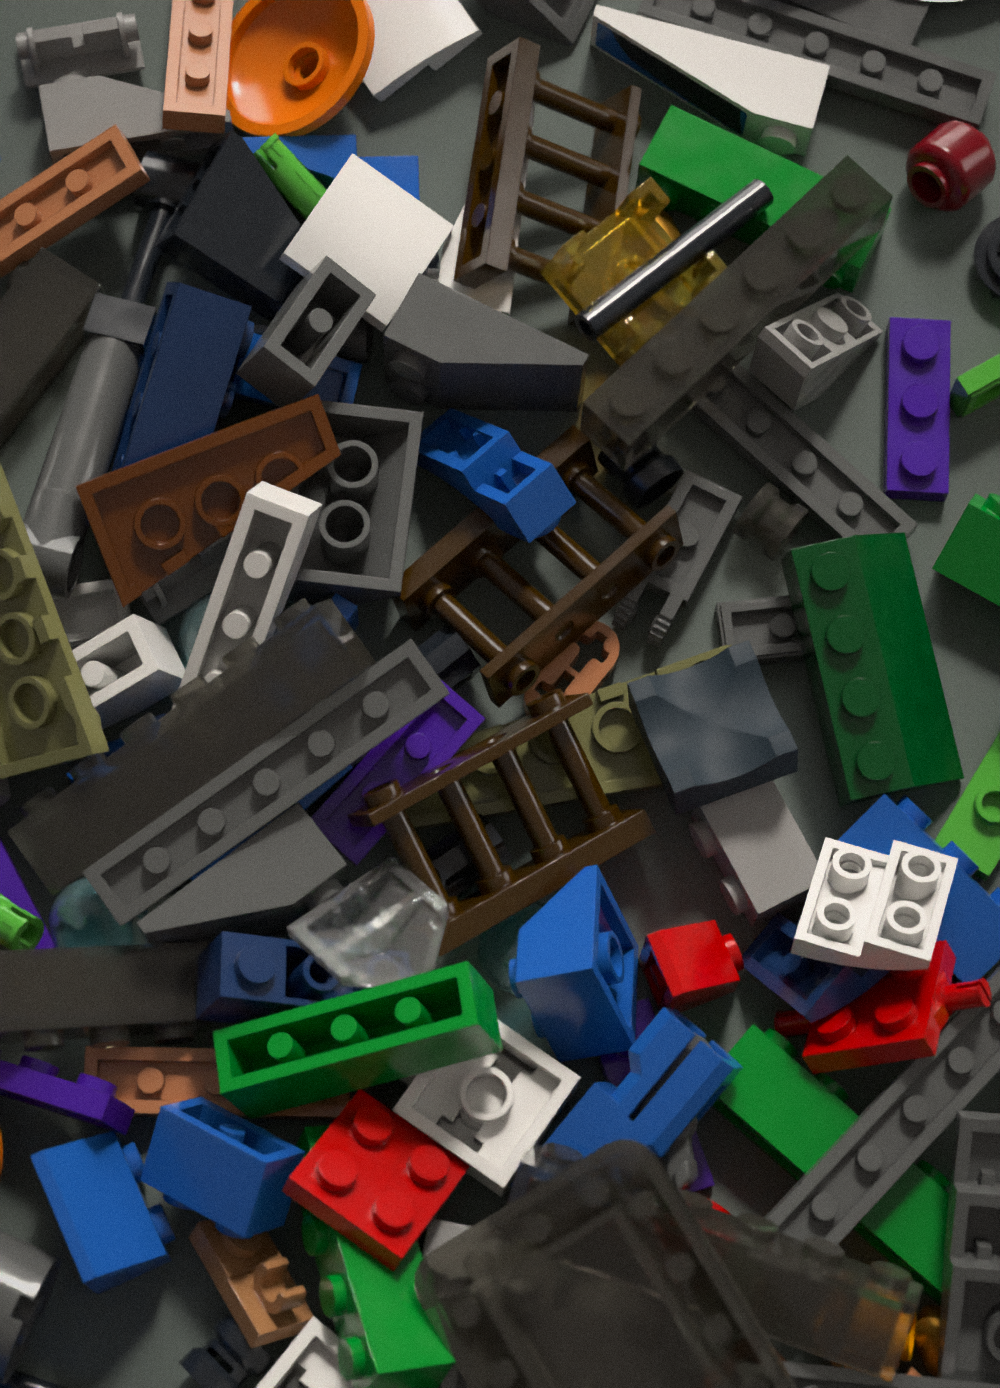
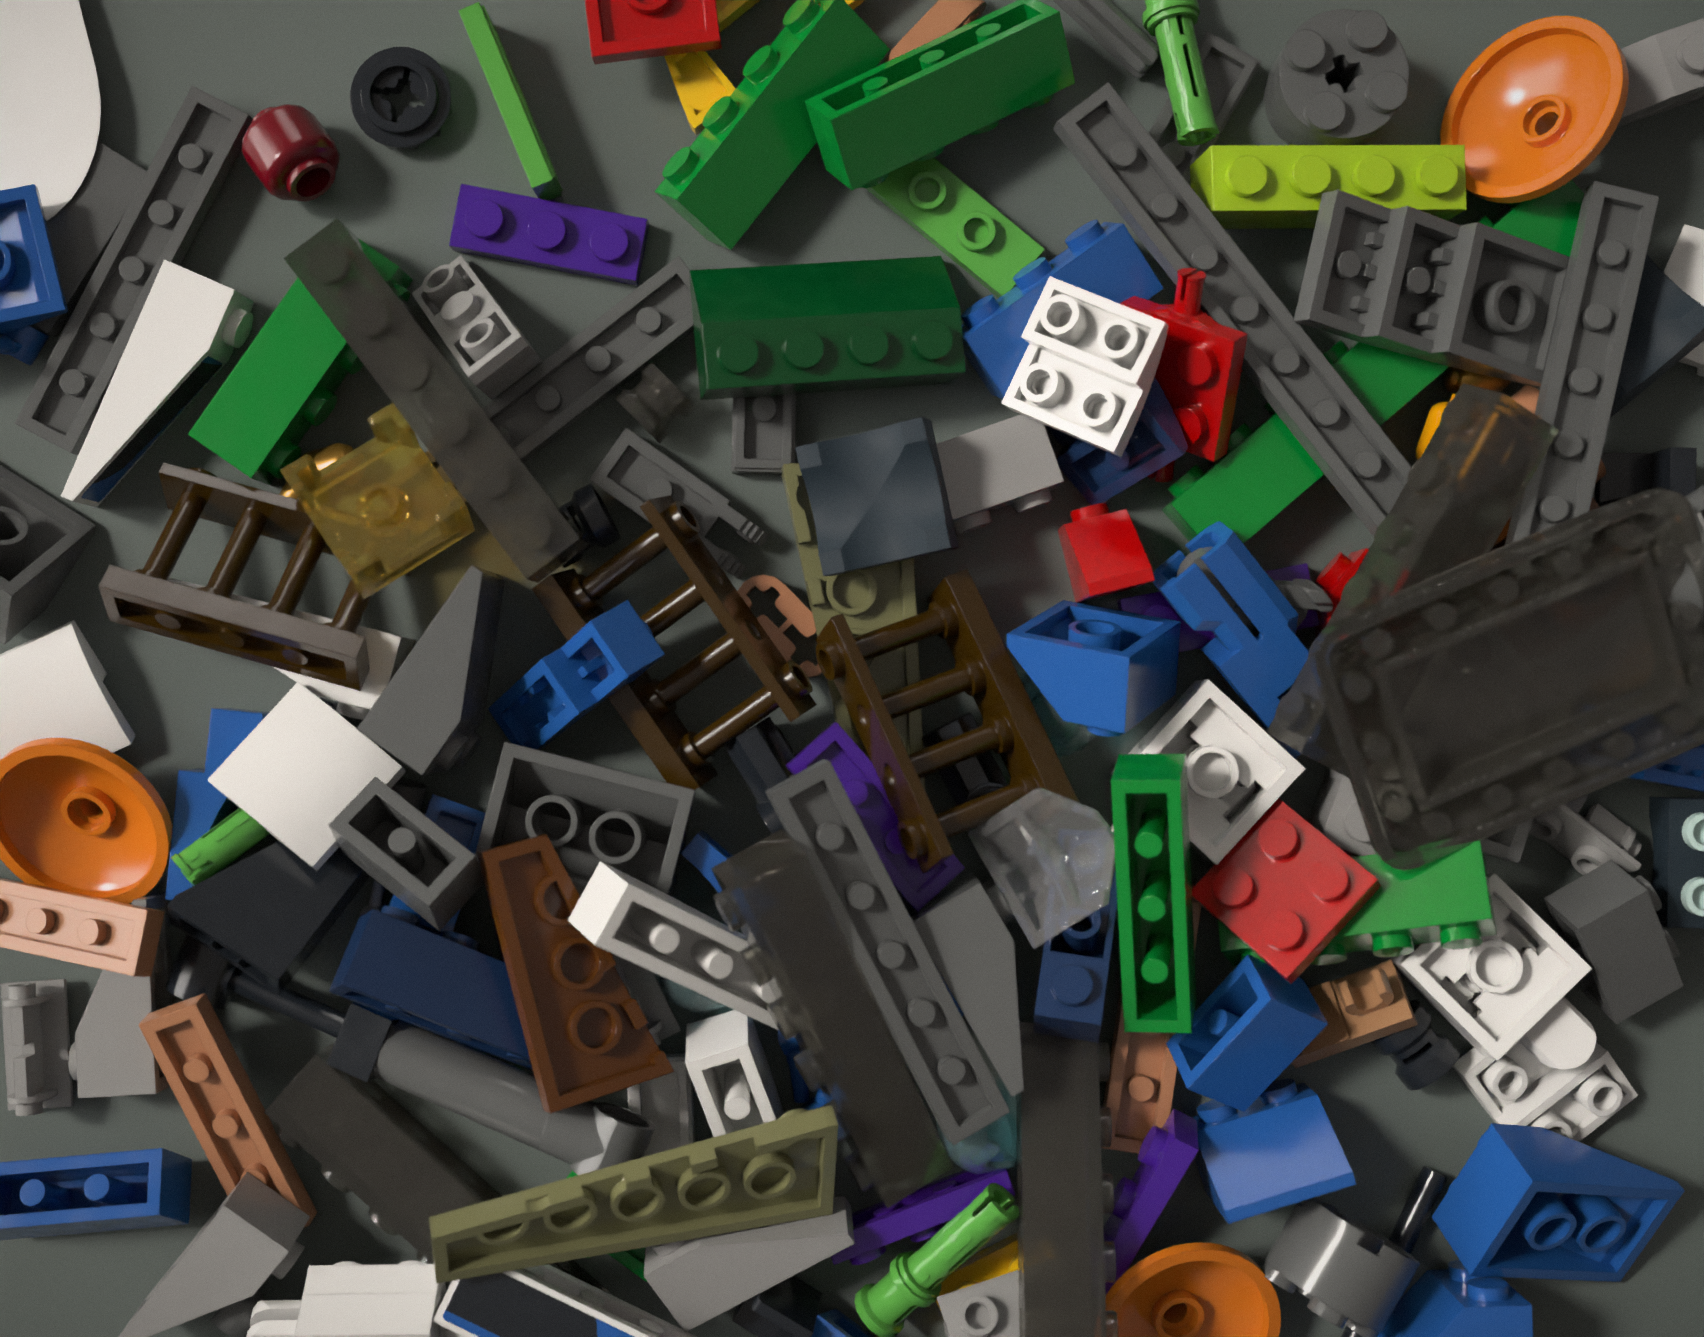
camera: 75 degrees left, 15 degrees up
(673, 260) = (371, 458): black piece -> none

